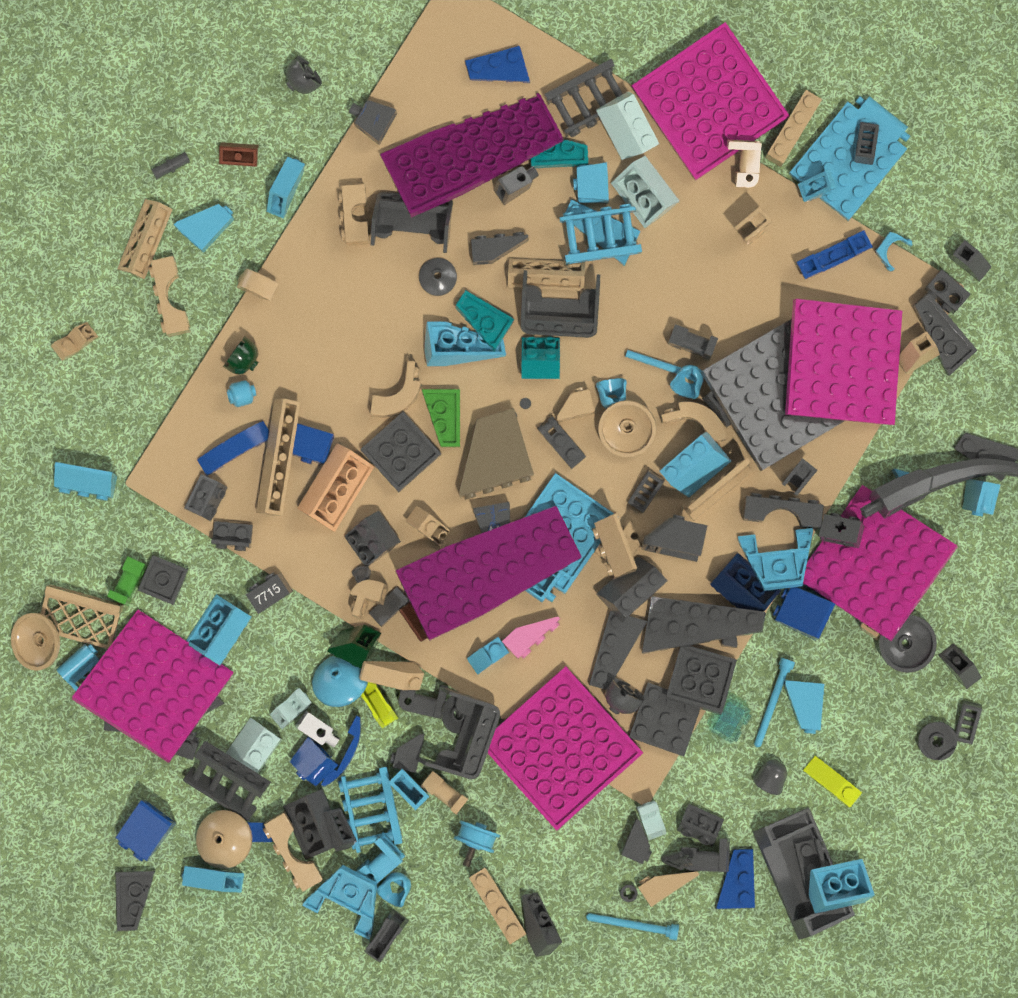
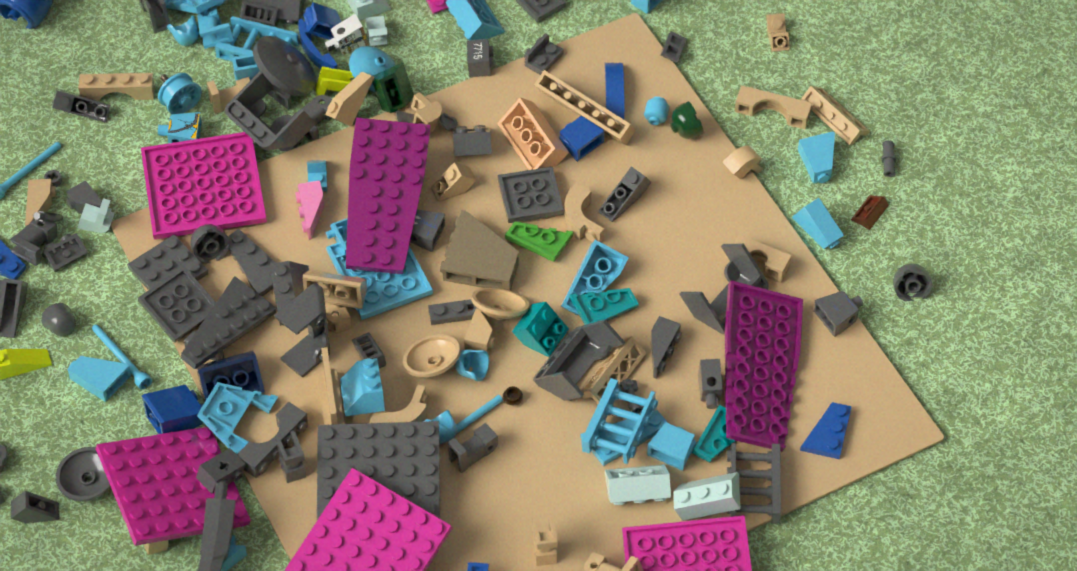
camera: 115 degrees right, 30 degrees down
(150, 426) = (673, 46): none -> dark grey slope
(206, 497) = (586, 52): dark grey bracket -> none
(353, 369) = (625, 194): none -> dark grey slope
(392, 758) = (284, 66): none -> dark grey dish
(438, 286) = (664, 301): dark grey dish -> none
(509, 811) = (182, 127): none -> medium azure torso
(530, 403) = (500, 303): none -> tan dish
(555, 252) = (631, 386): none -> dark grey bar
(619, 343) = (512, 396): none -> dark brown plate
(731, 721) = (129, 314): clear light blue brick -> none

